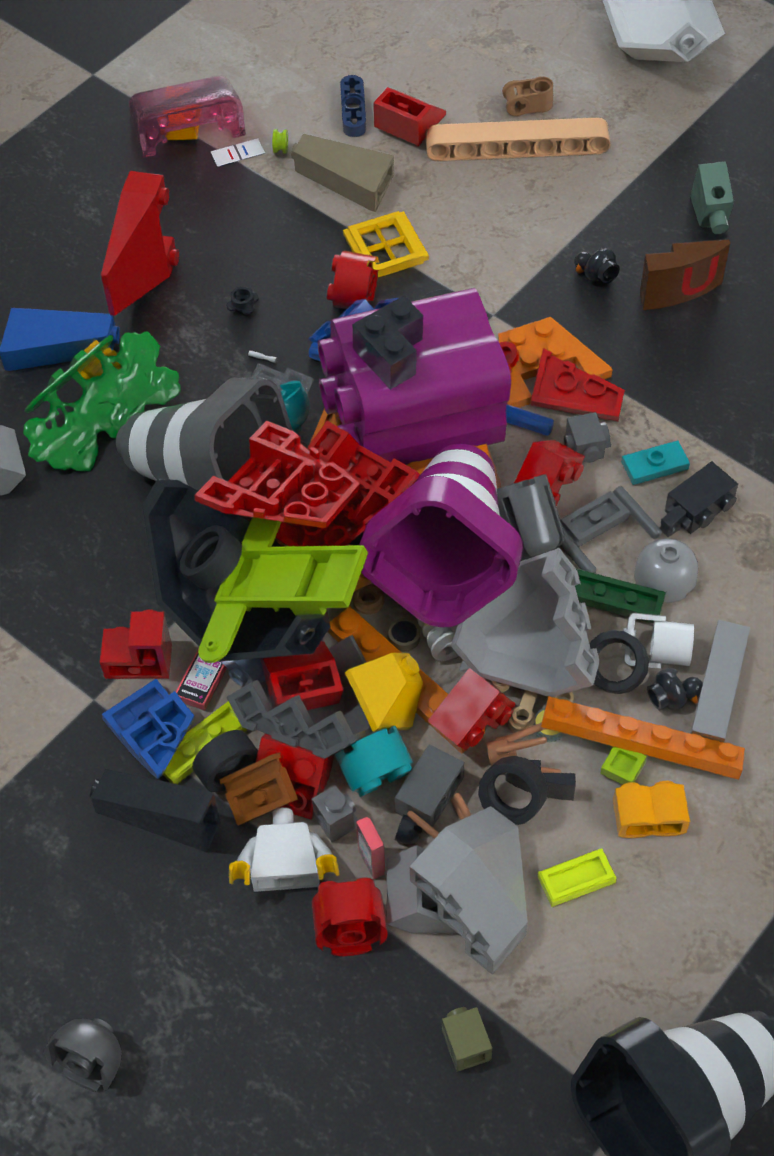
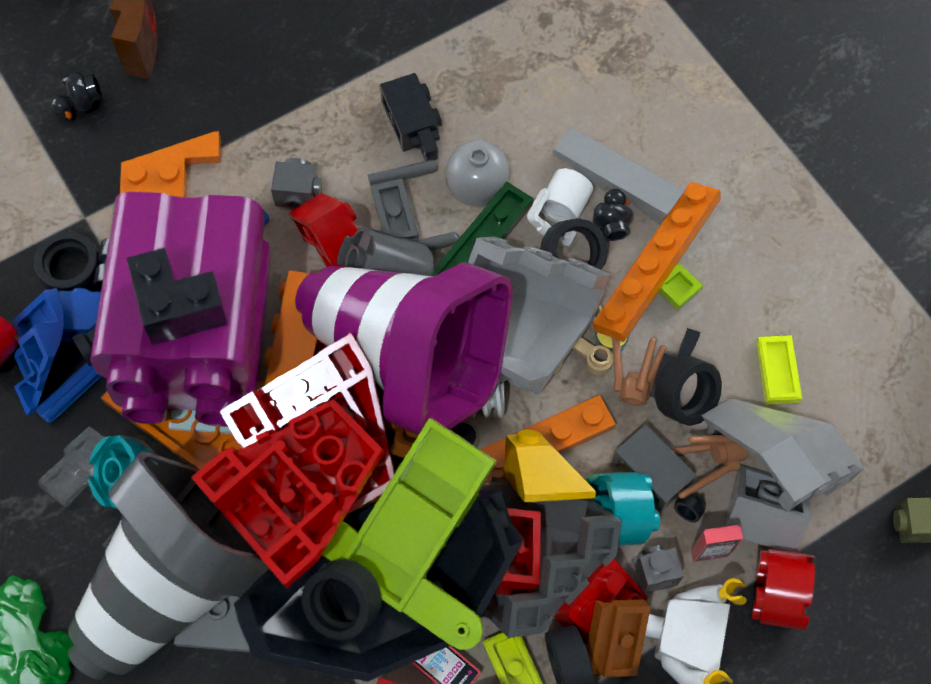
camera: 75 degrees left, 10 degrees up
(262, 356) = (14, 484): white piece -> none
(470, 708) = (593, 395): red brick -> none
(571, 390) = (231, 170): red wing -> none
(651, 810) = (733, 280): light orange brick -> none
(655, 462) = (346, 137): teal plate -> none

